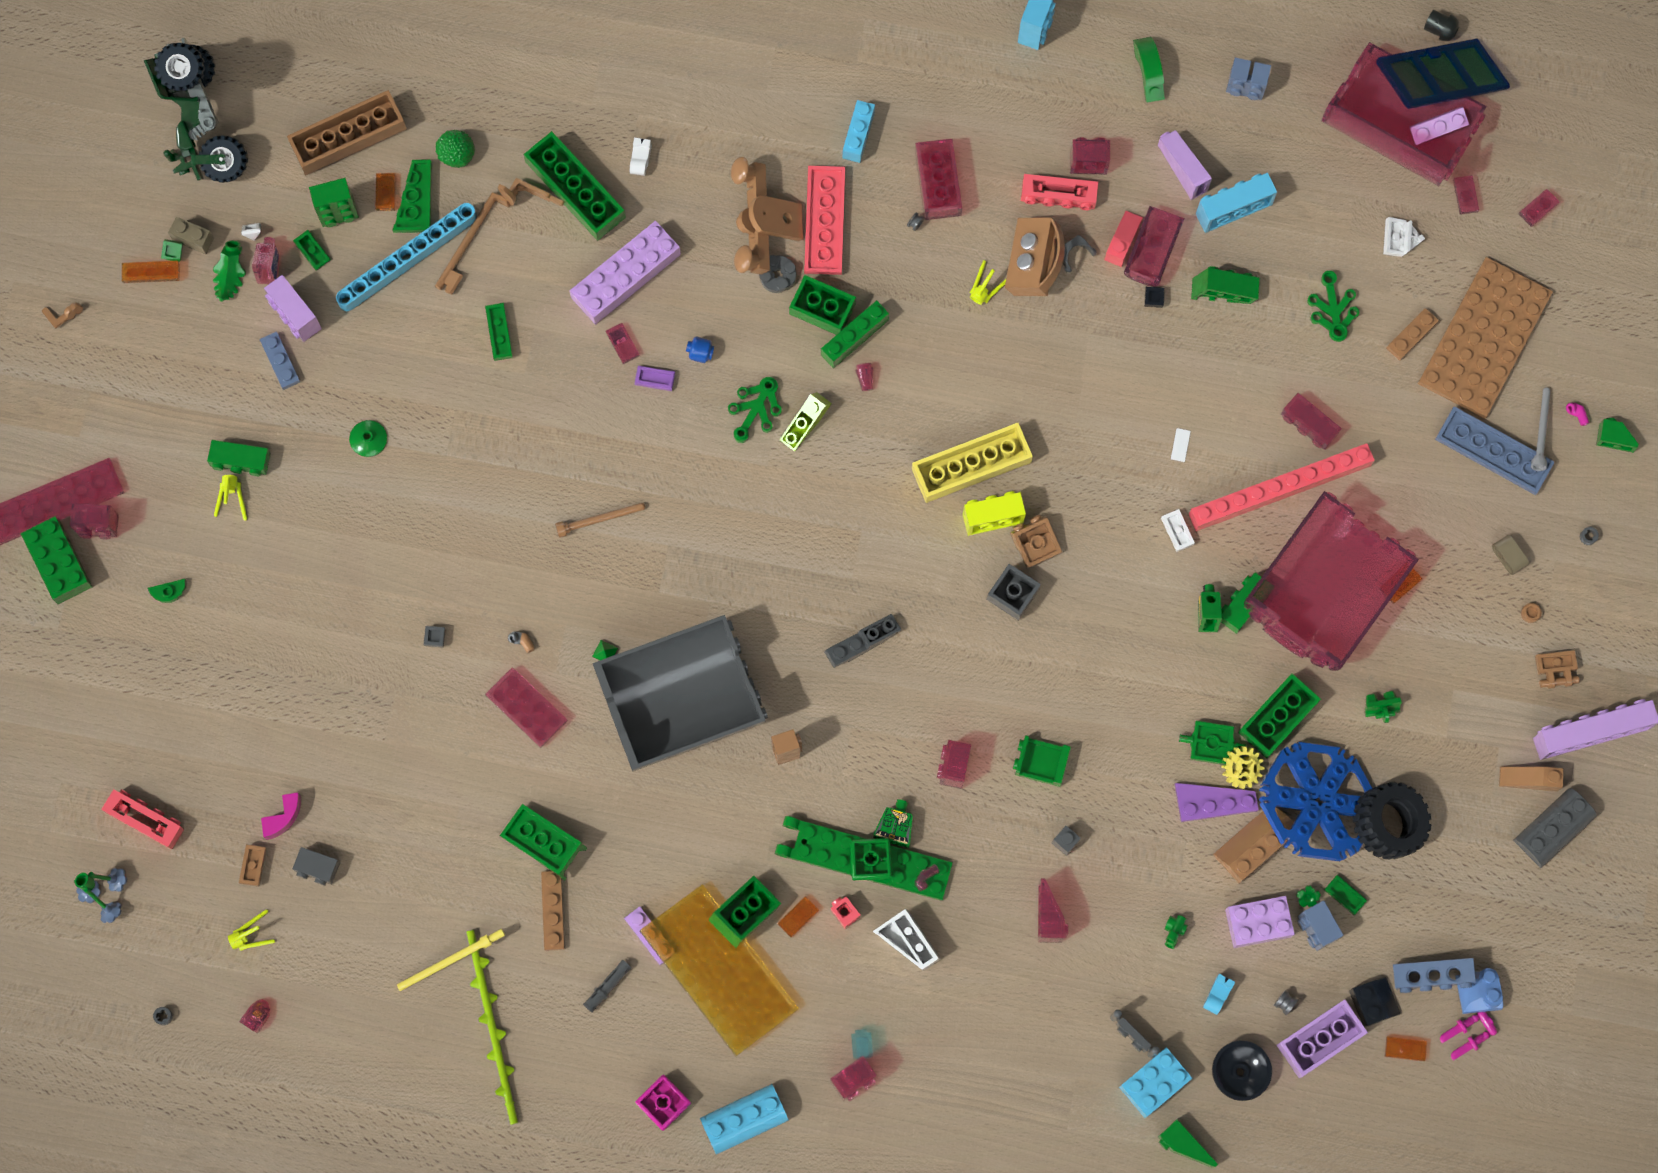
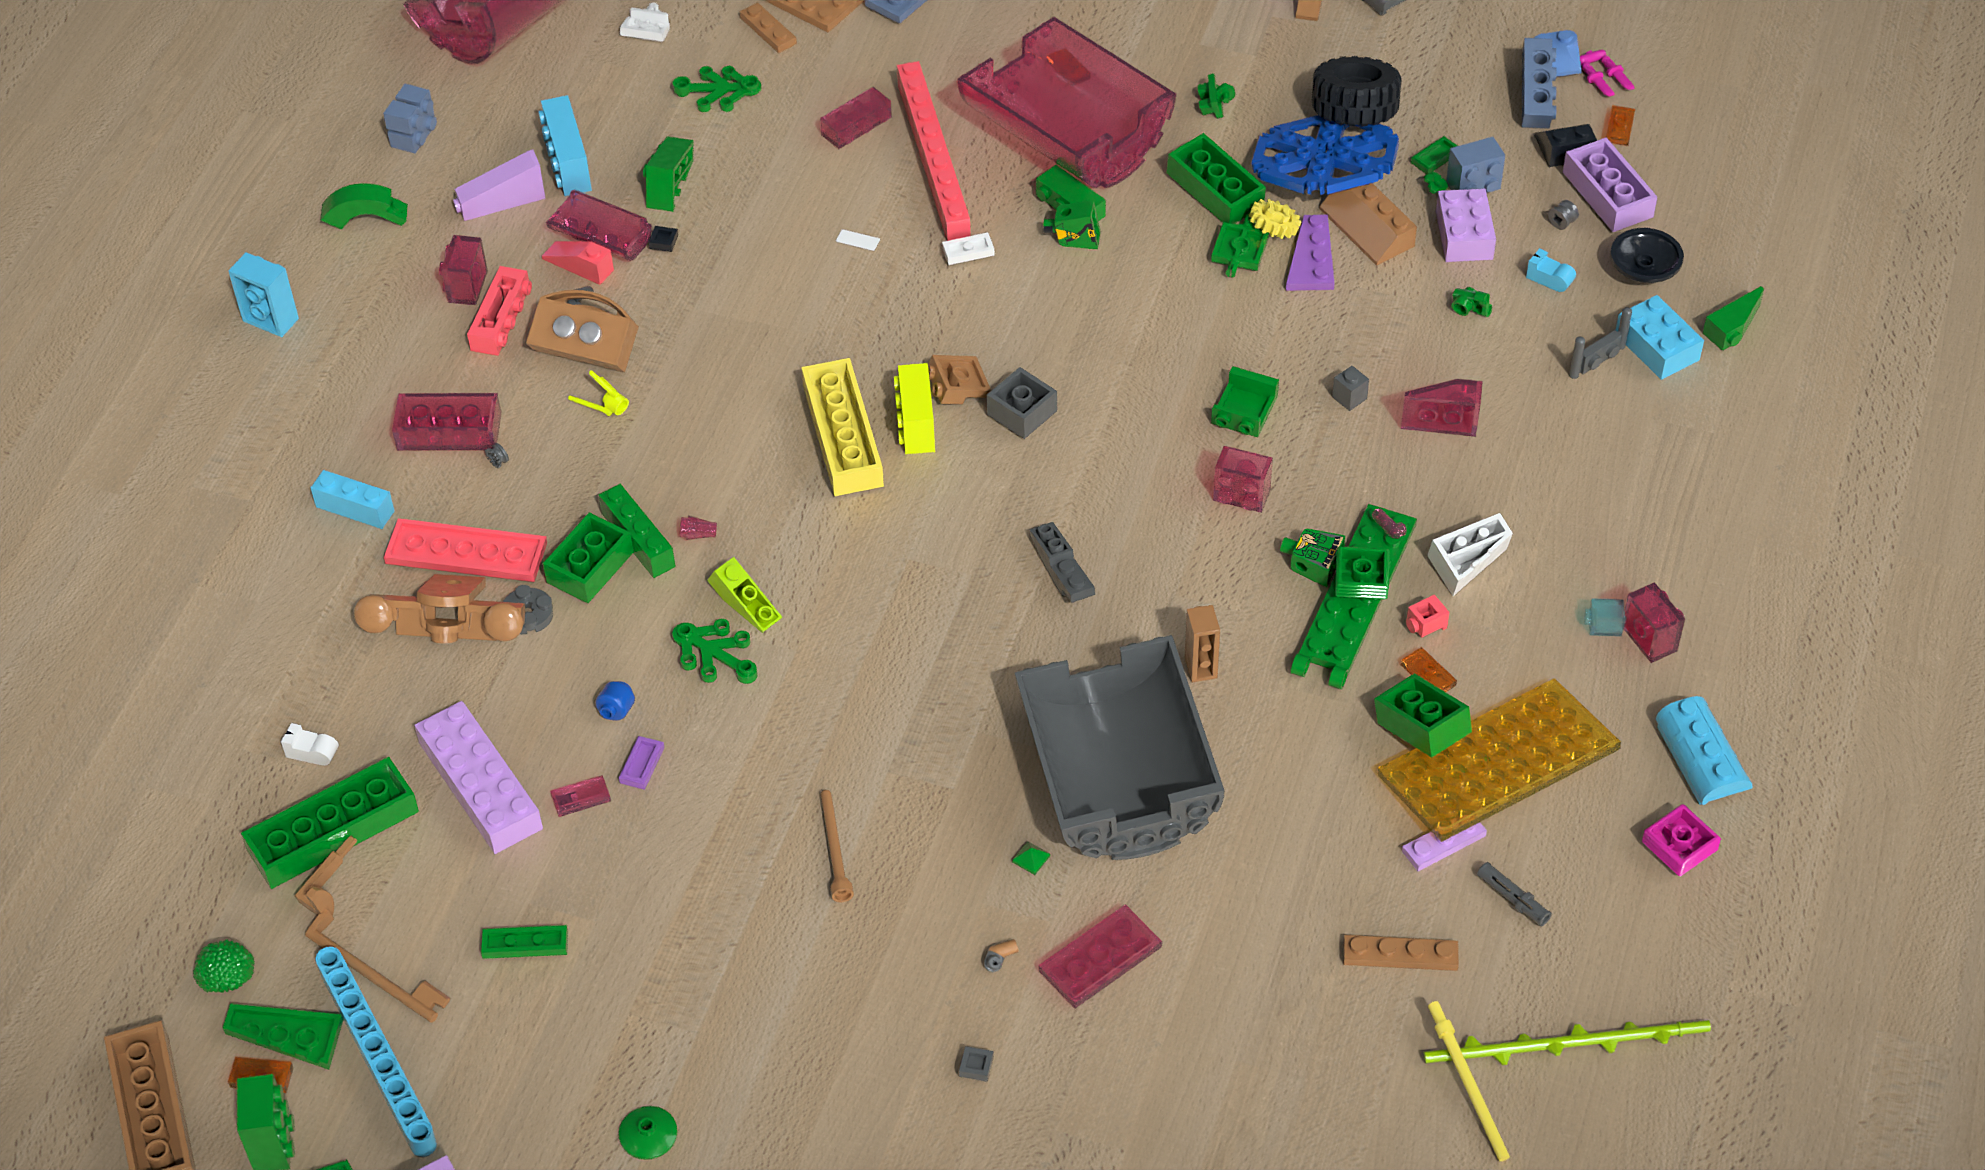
camera: 80 degrees left, 25 degrees down
(542, 840) = (1301, 946): green plate -> none

